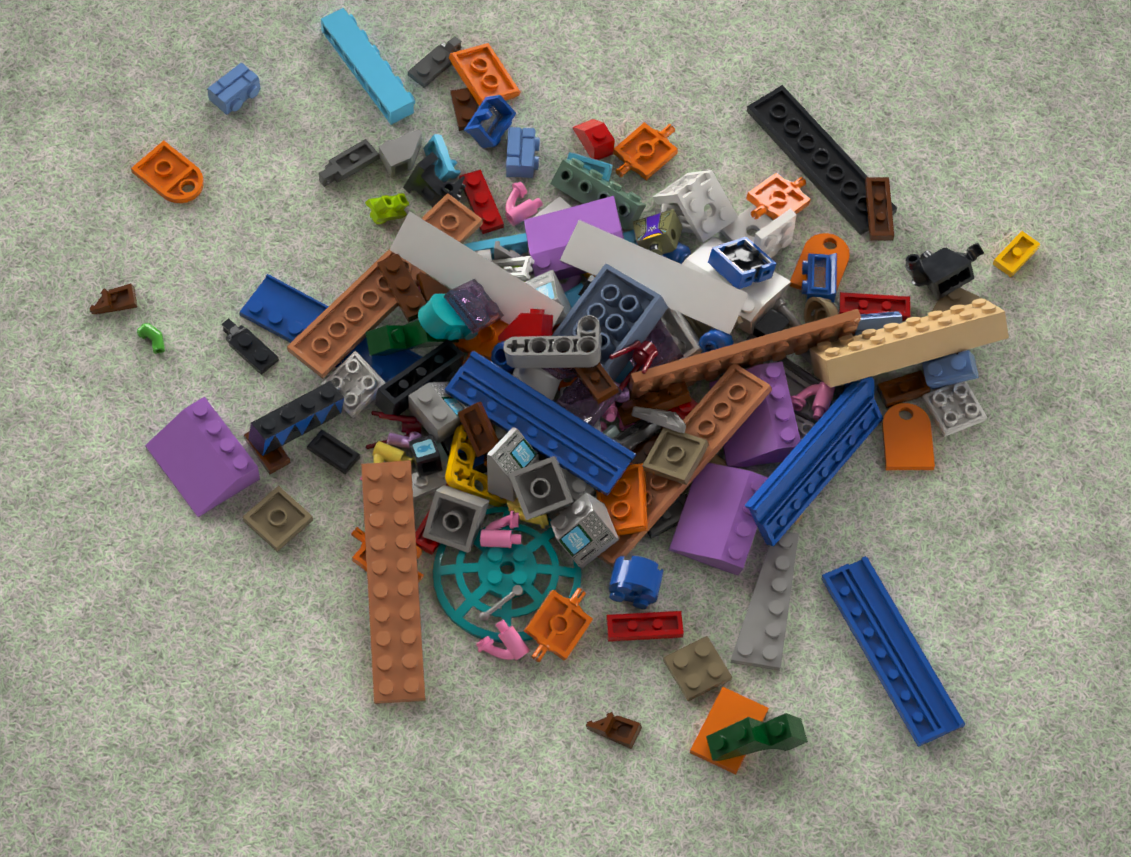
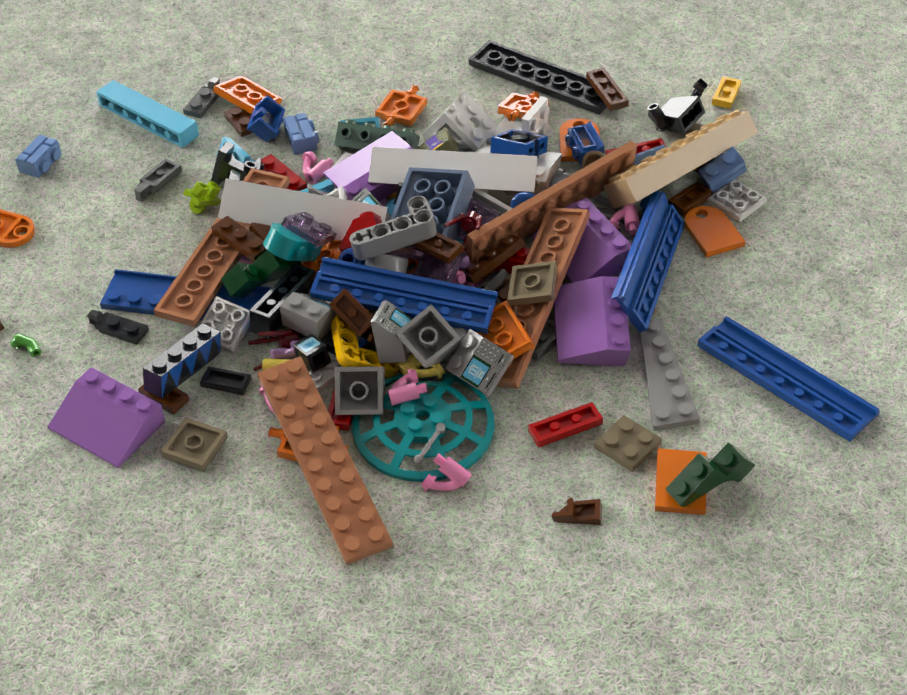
camera: 15 degrees left, 15 degrees down
(401, 153) = (198, 160): light grey slope -> none
(558, 624) = (489, 445): orange plate -> none
(595, 138) = (357, 108): red slope -> none
(635, 581) = (542, 389): blue brick -> none
(660, 417) = (507, 262): light grey tile -> none

